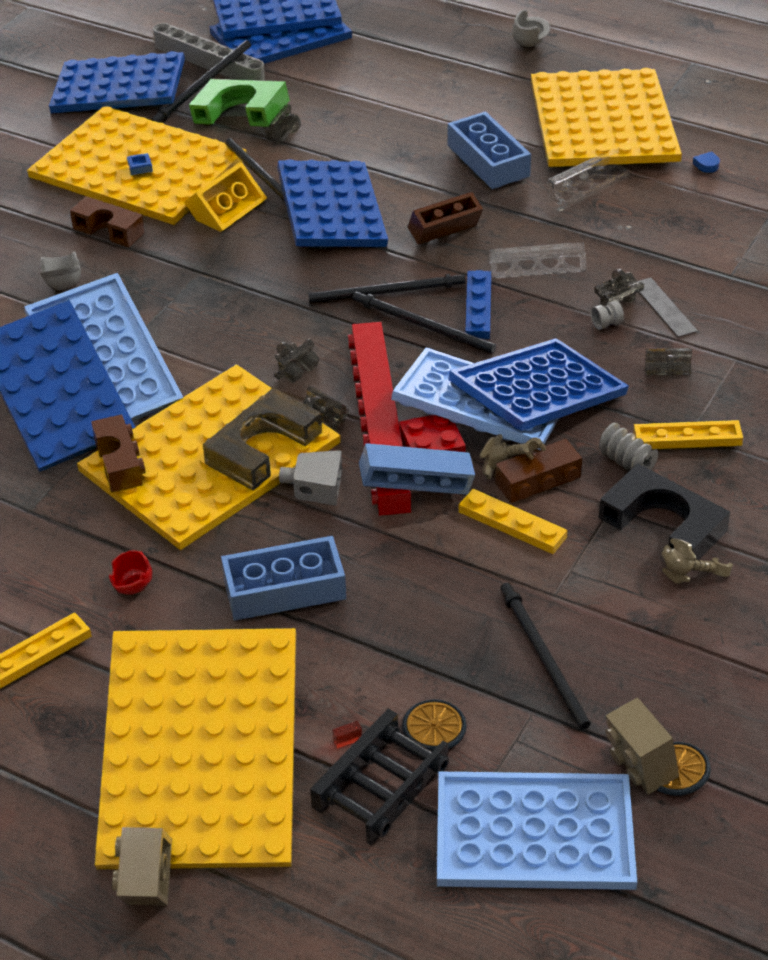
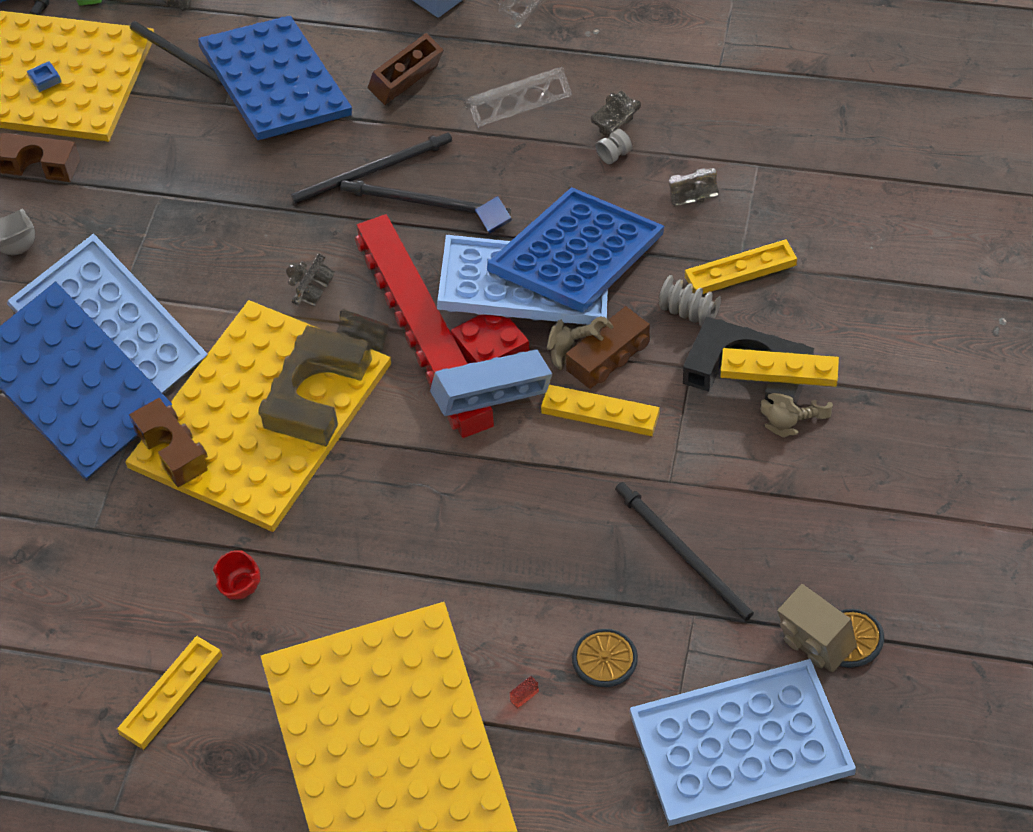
camera: 15 degrees left, 10 degrees up
(226, 198) = (156, 97): yellow slope -> none
(283, 577) = (398, 539): medium blue brick -> none
(315, 476) = (384, 413): light grey torso -> none
(367, 751) = (553, 706): black fence -> none
(477, 345) = (493, 214): none -> tile
(478, 303) = (474, 162): blue plate -> none
(666, 308) = (668, 121): flat silver sticker -> none
(690, 518) = (779, 367): none -> yellow plate

